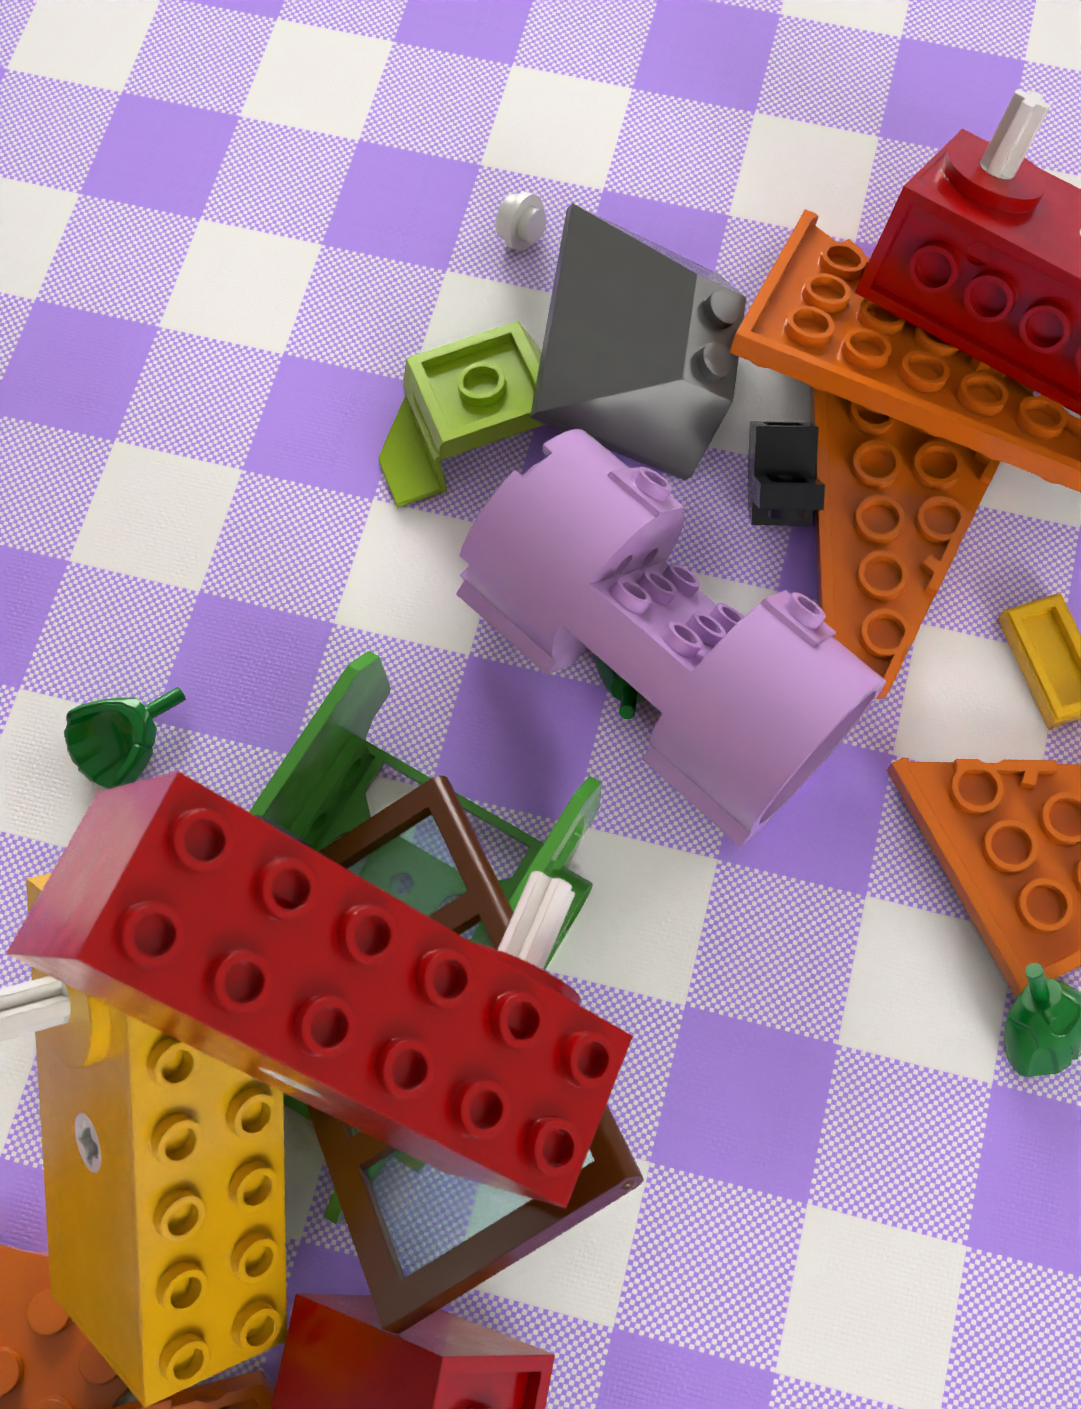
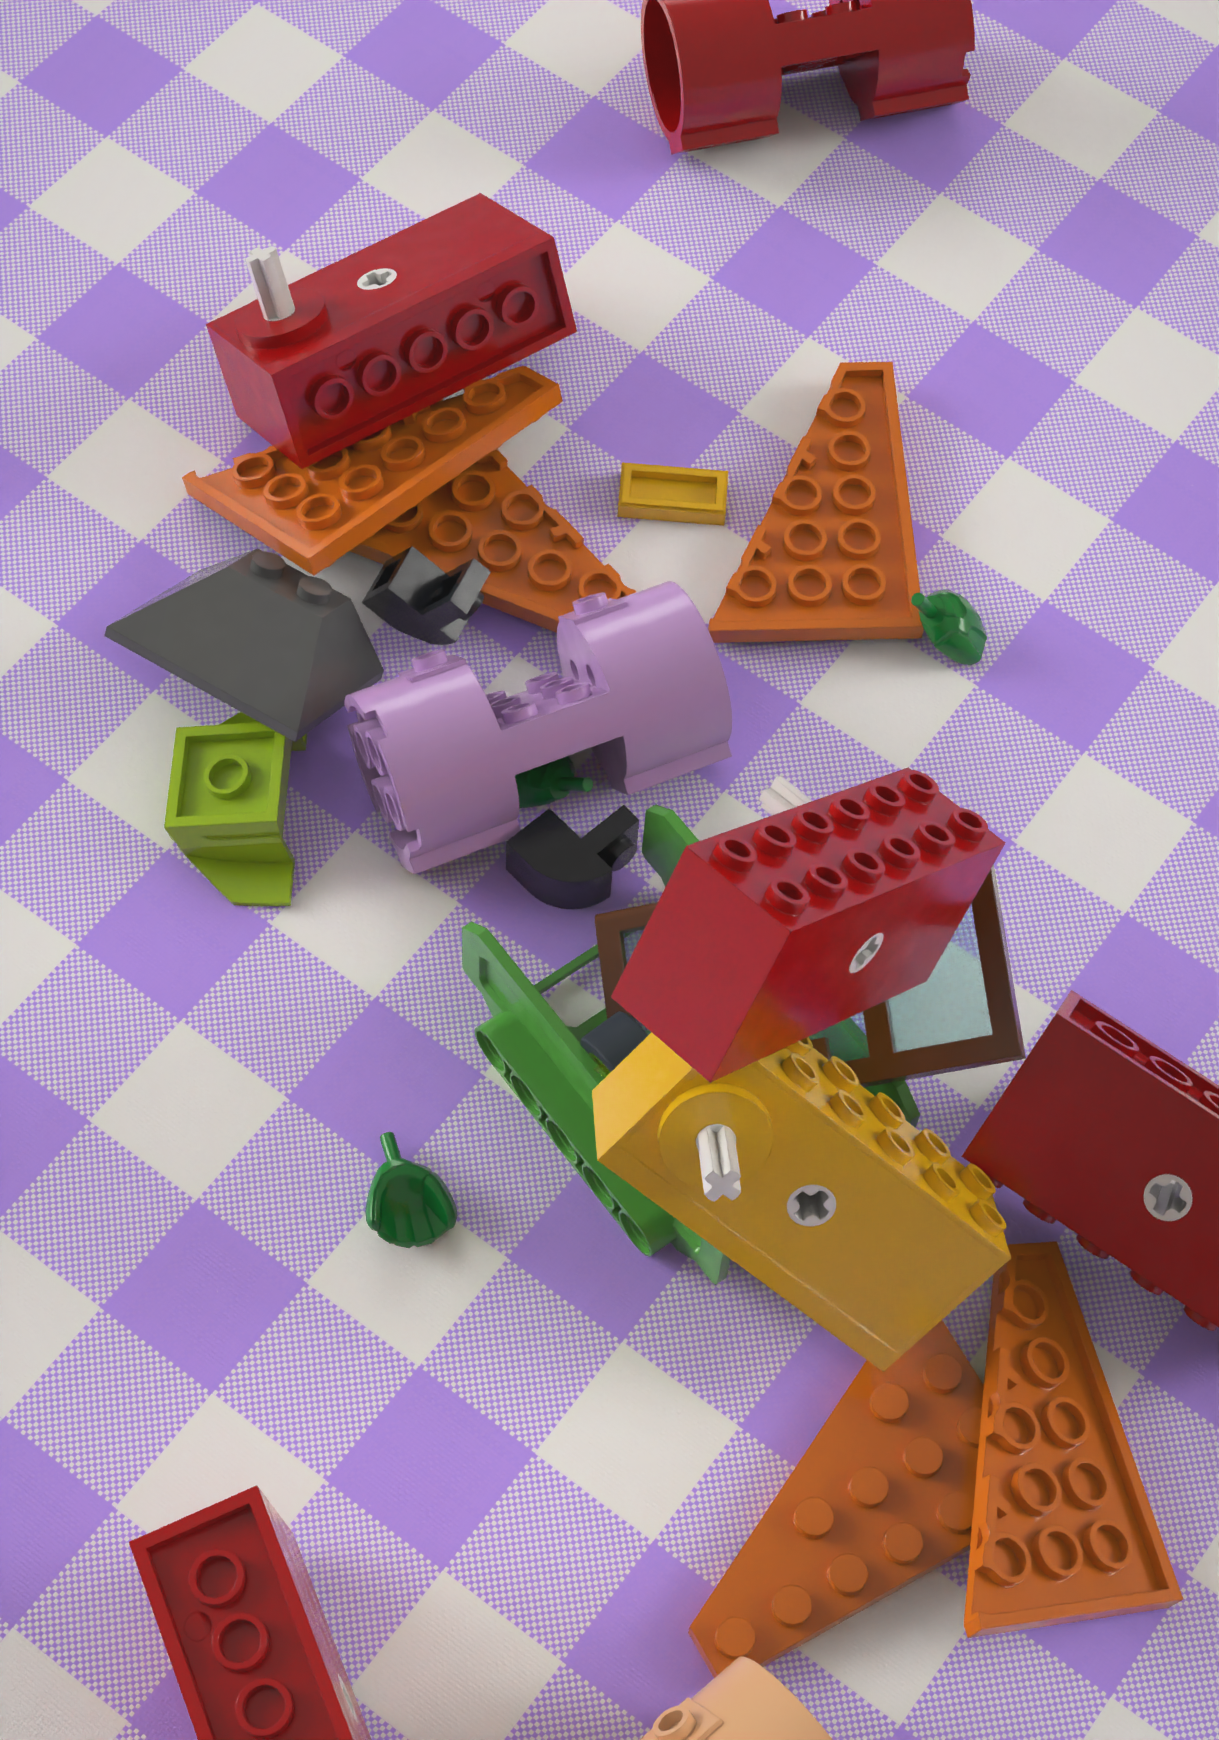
camera: 75 degrees left, 10 degrees down
(521, 220) = (63, 692): white plate -> none
(537, 732) = (571, 869): none -> black brick

